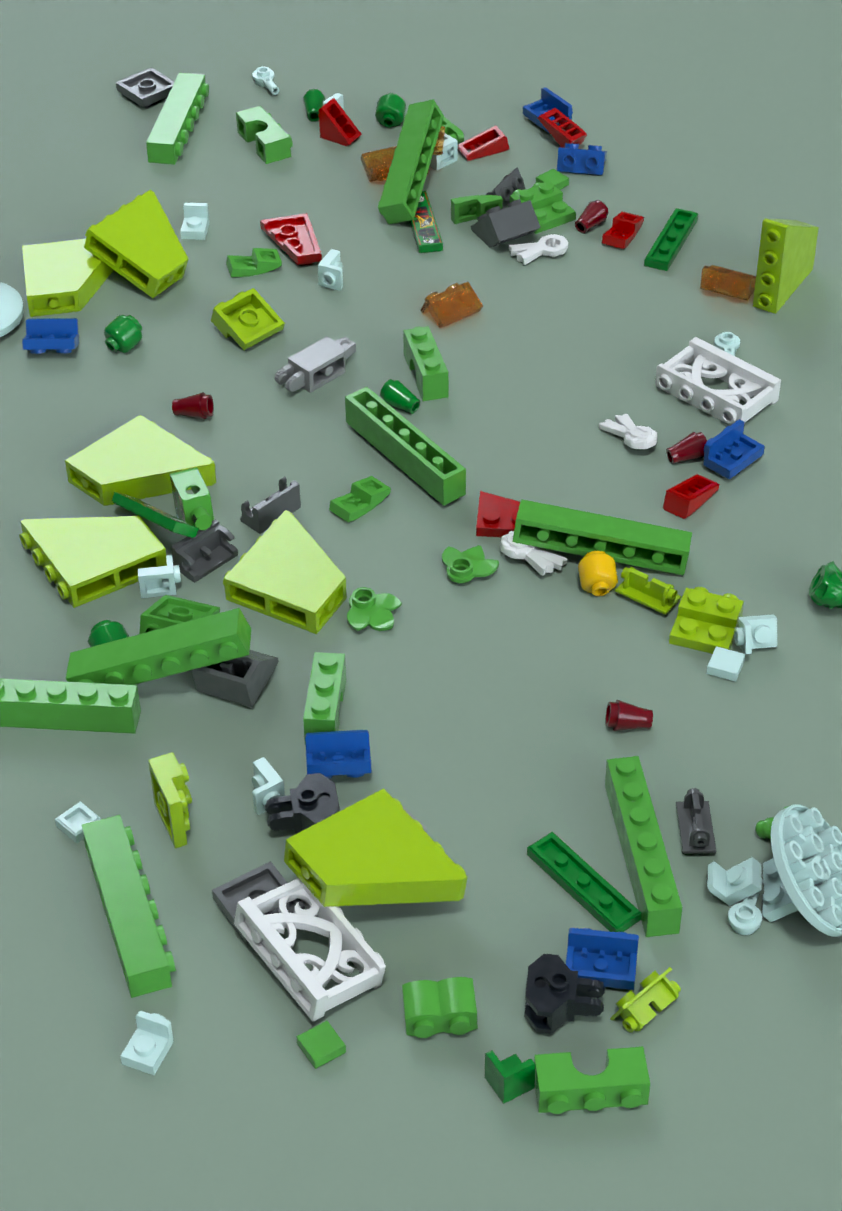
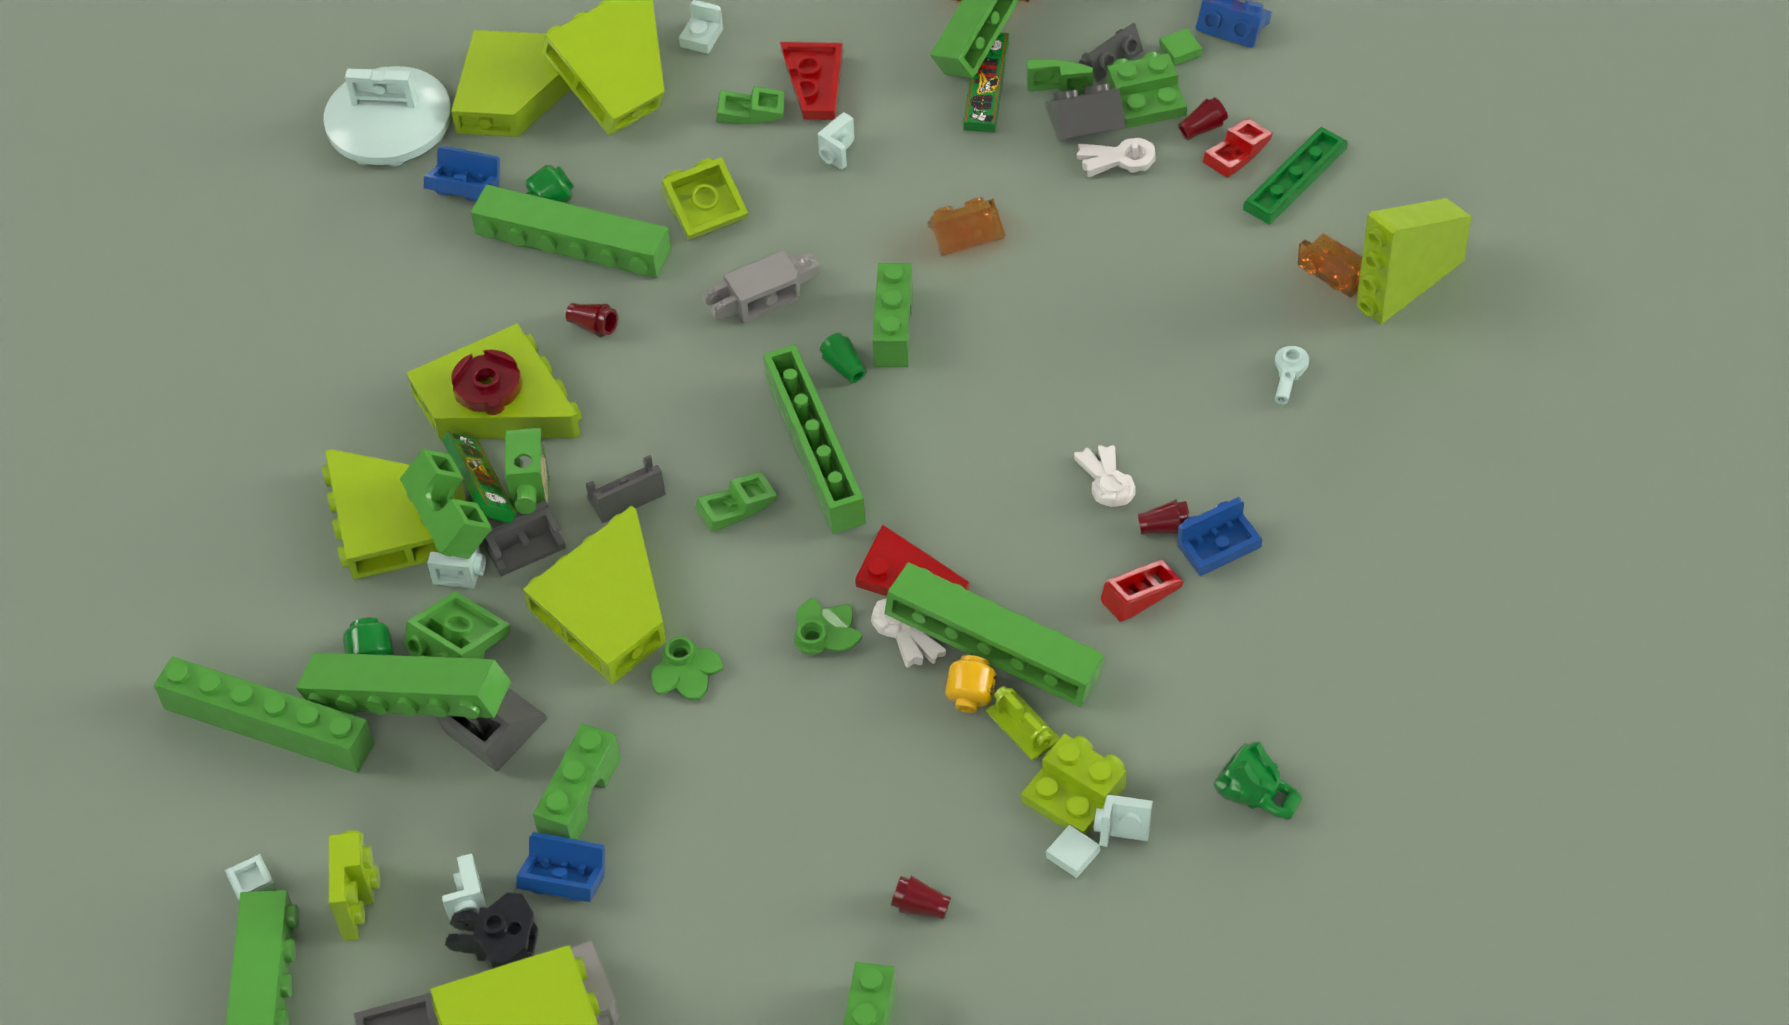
camera: 20 degrees right, 10 degrees up
(125, 458) = (486, 397): none -> dark red plate
(125, 520) = (453, 523): none -> bright green arch
(152, 356) = (571, 231): none -> bright green brick
(711, 362) = (1233, 451): white fence -> none

